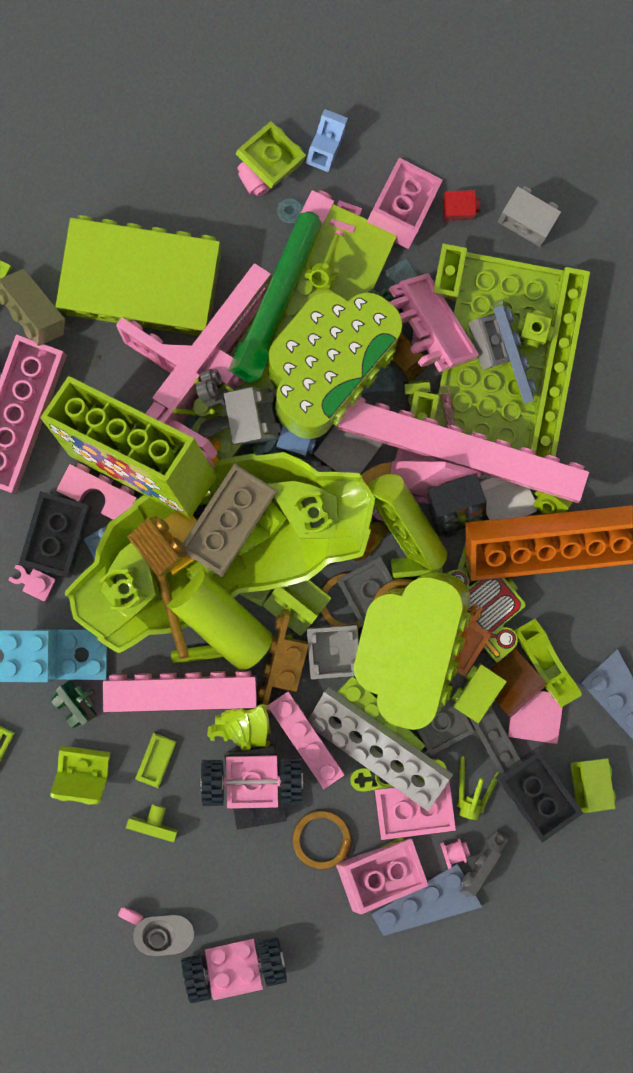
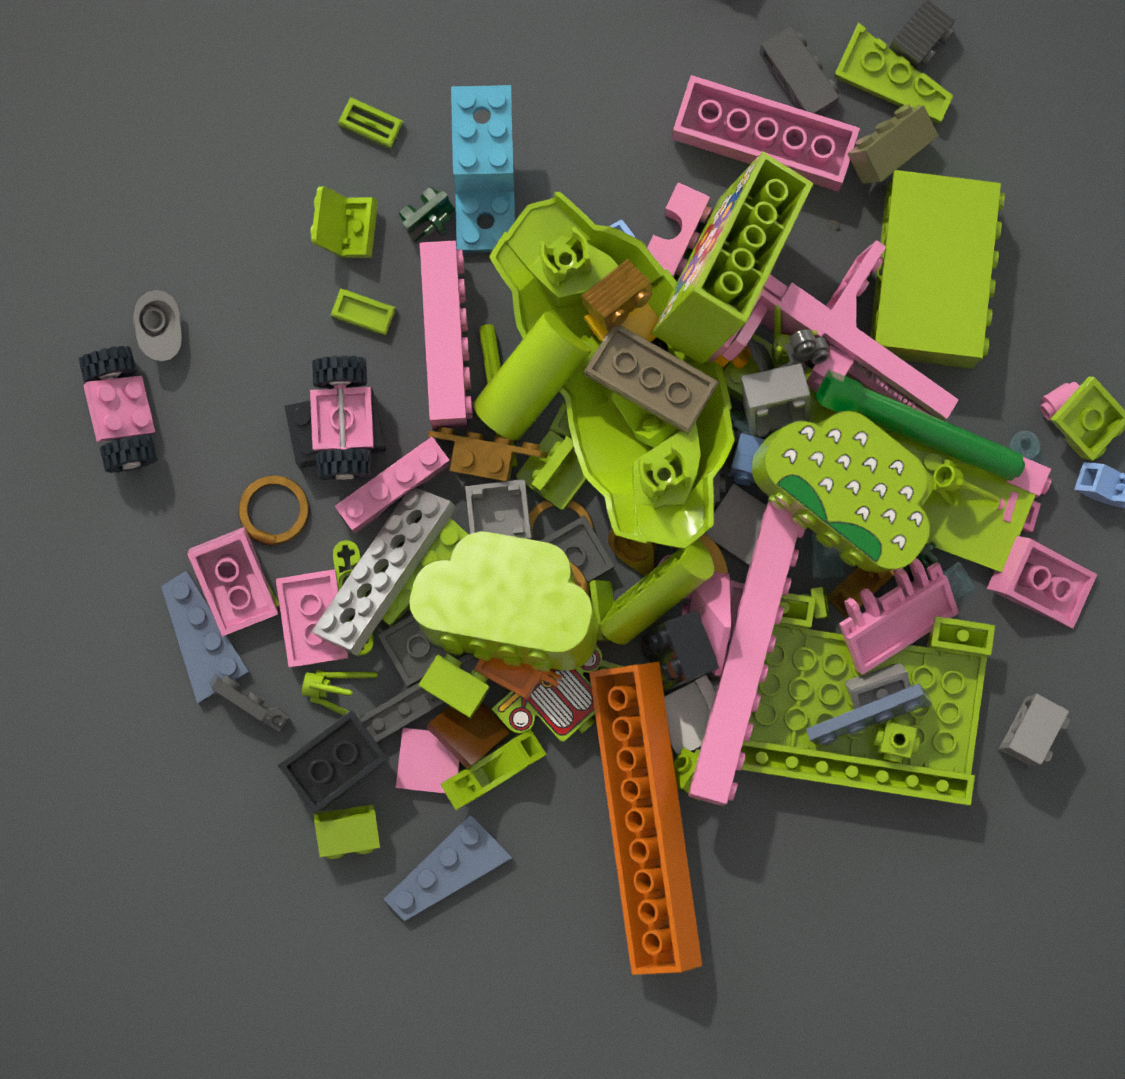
camera: 90 degrees right, 5 degrees down
(36, 584) = (567, 166): bright pink plate -> none
(55, 534) = (625, 183): black brick -> none
(130, 915) = (180, 287): bright pink tile -> none
(152, 825) = (287, 310): lime tile -> none
(172, 617) = (531, 319): pearl gold bar -> none
(244, 726) = (407, 410): lime helmet -> none
(452, 416) = (810, 636): bright pink piece -> none
(455, 852) = (261, 667): bright pink brick -> none
(460, 205) = (1042, 649): red brick -> none

